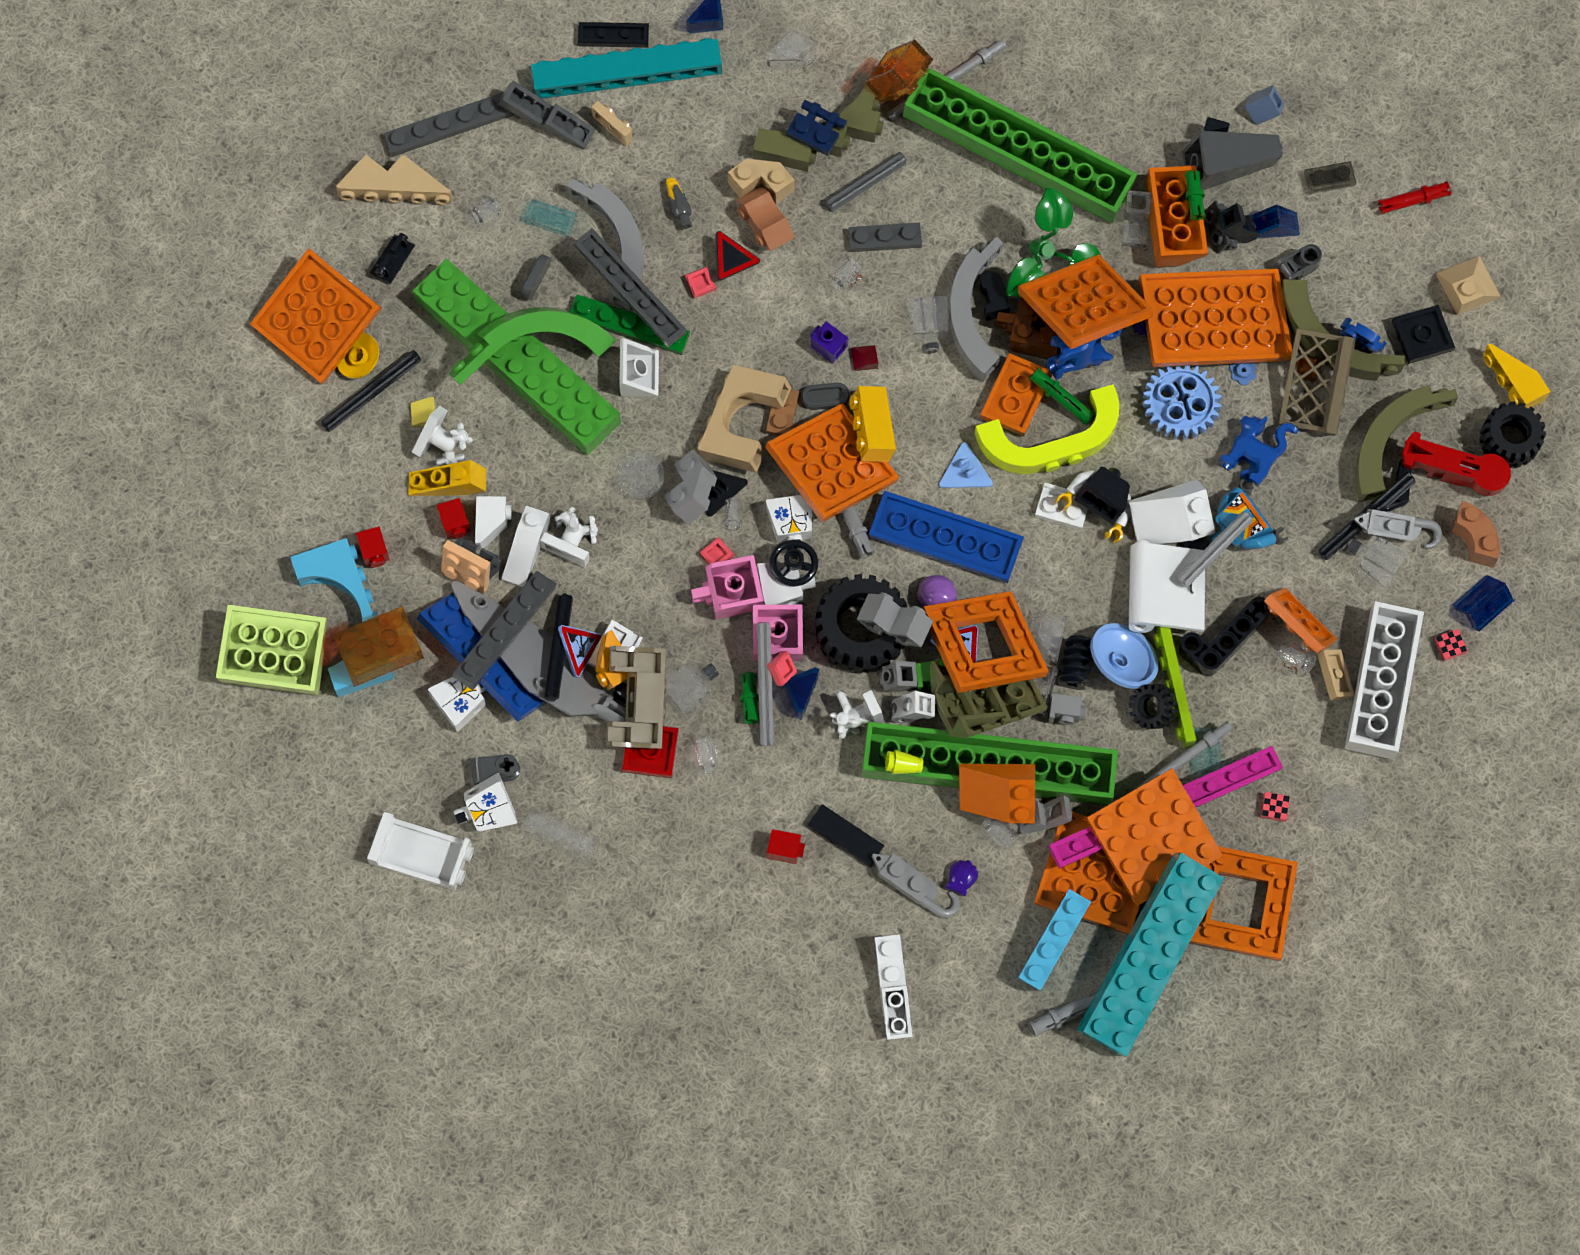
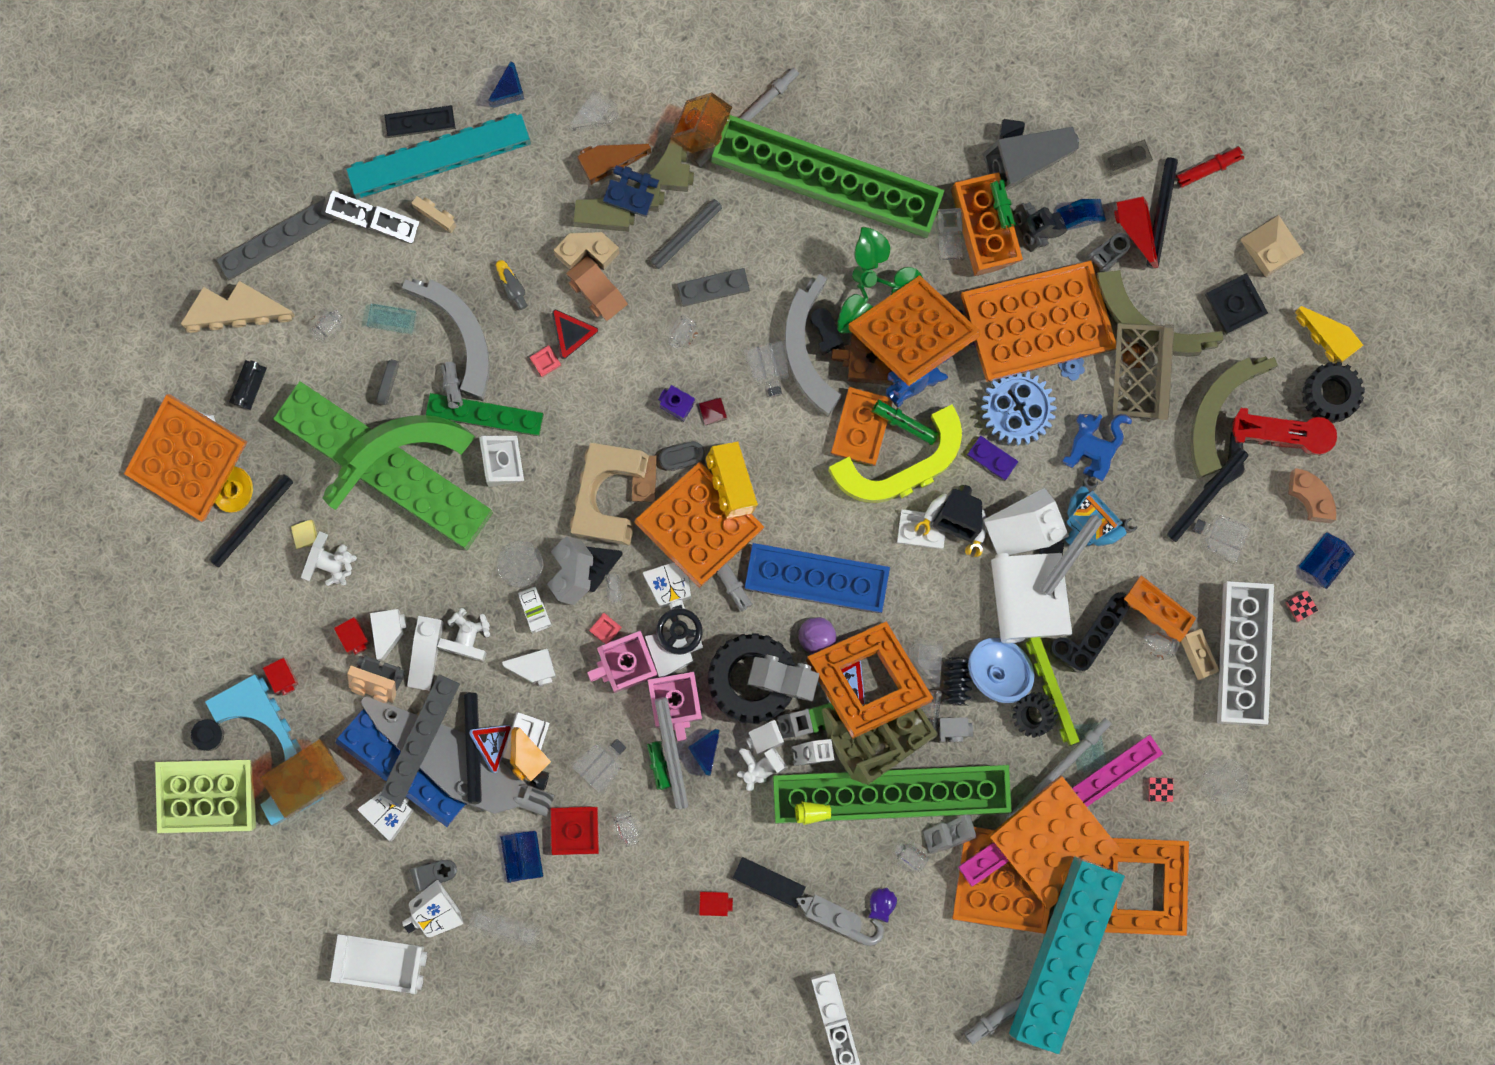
camera: 10 degrees left, 10 degrees up
(285, 593) = (207, 735): none -> black piece
(448, 480) = (340, 599): yellow slope -> none
(590, 767) = (521, 856): none -> clear blue panel
(601, 290) = (451, 385): none -> light grey pin
(630, 287) = (479, 383): dark grey plate -> none
(634, 578) = (533, 667): none -> white slope
(644, 697) = (561, 787): dark tan bracket -> none
(647, 523) = (534, 610): none -> white leg
(782, 668) = (685, 736): coral tile -> none
(788, 96) = (602, 159): none -> dark orange slope
(864, 681) = (765, 738): none -> white slope
(965, 471) = (825, 508): light blue piece -> none
(998, 791) = (905, 825): orange slope -> none
(1054, 940) = (976, 954): medium azure brick -> none
(1147, 447) = (992, 458): none -> dark purple plate
(1264, 105) = (1055, 95): sand blue panel -> none
(1331, 238) = (1136, 221): none -> red slope
(1358, 235) = (1163, 205): none -> black axle
(1364, 335) = (1173, 315): blue plate -> none
(1397, 526) = (1237, 501): light grey plate -> none

